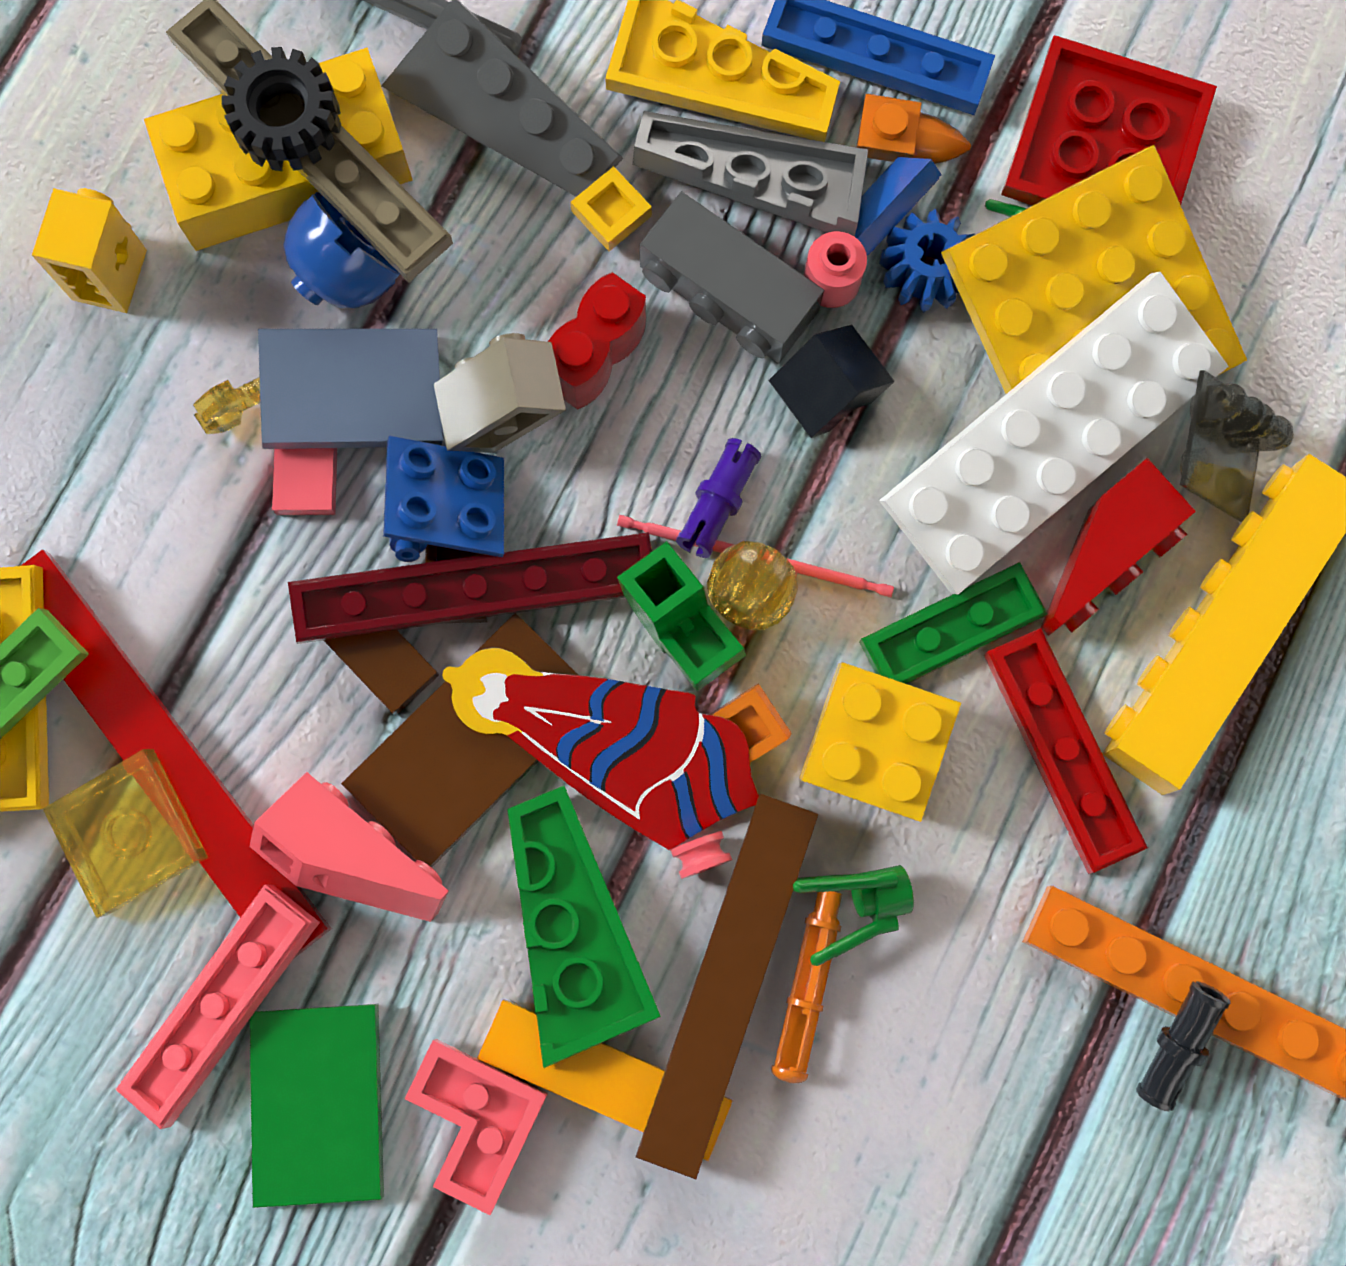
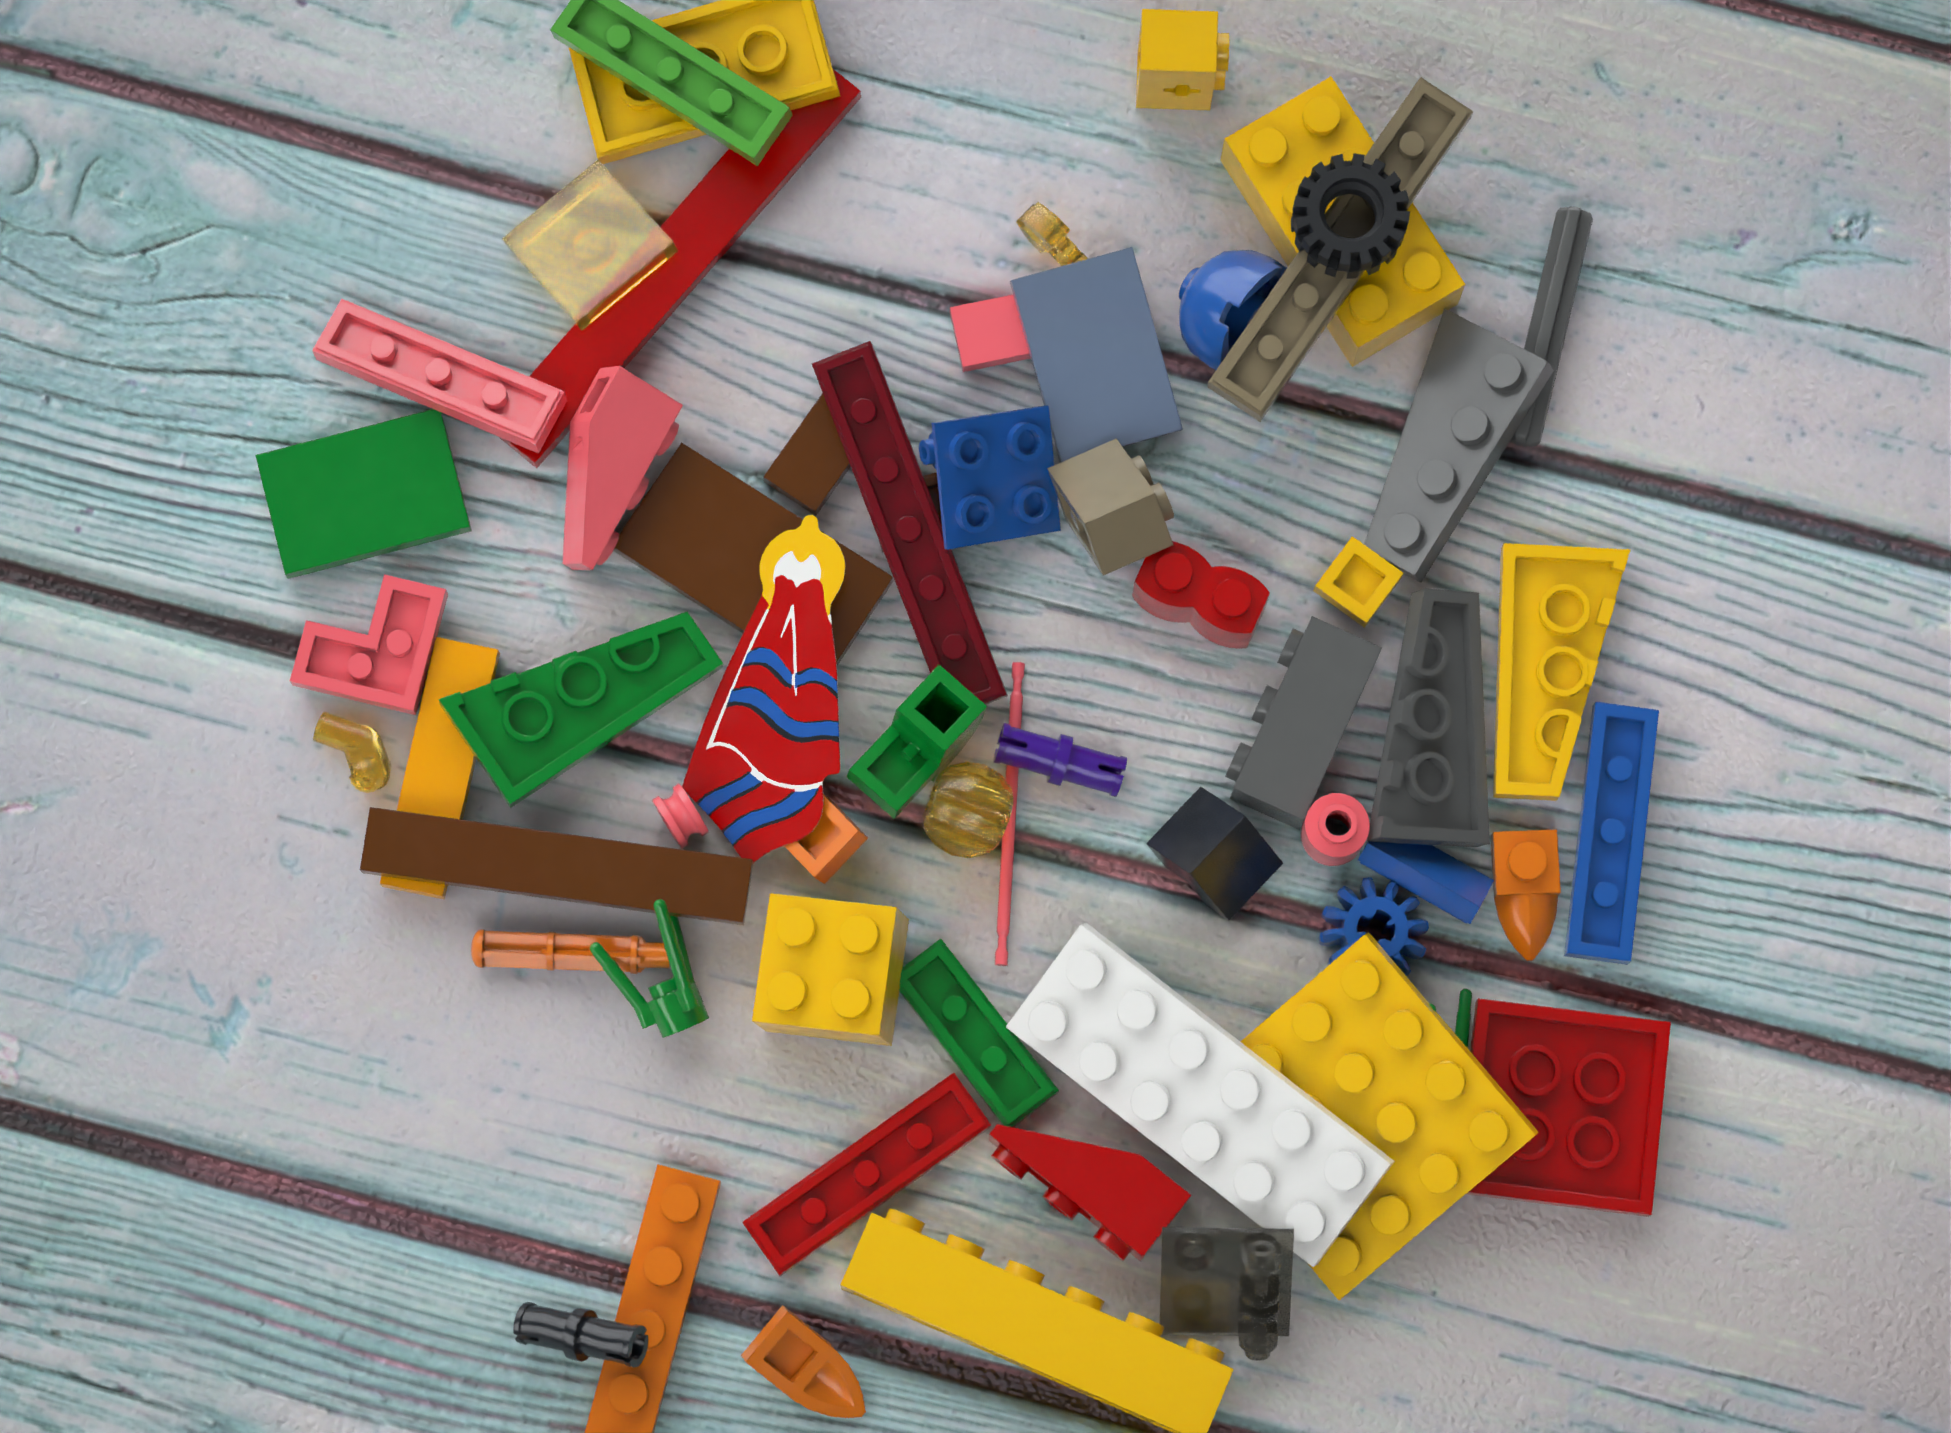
camera: 80 degrees right, 0 degrees up
(571, 1153) = (362, 748): none -> clear yellow arm
(1236, 842) = (805, 1367): none -> orange plate

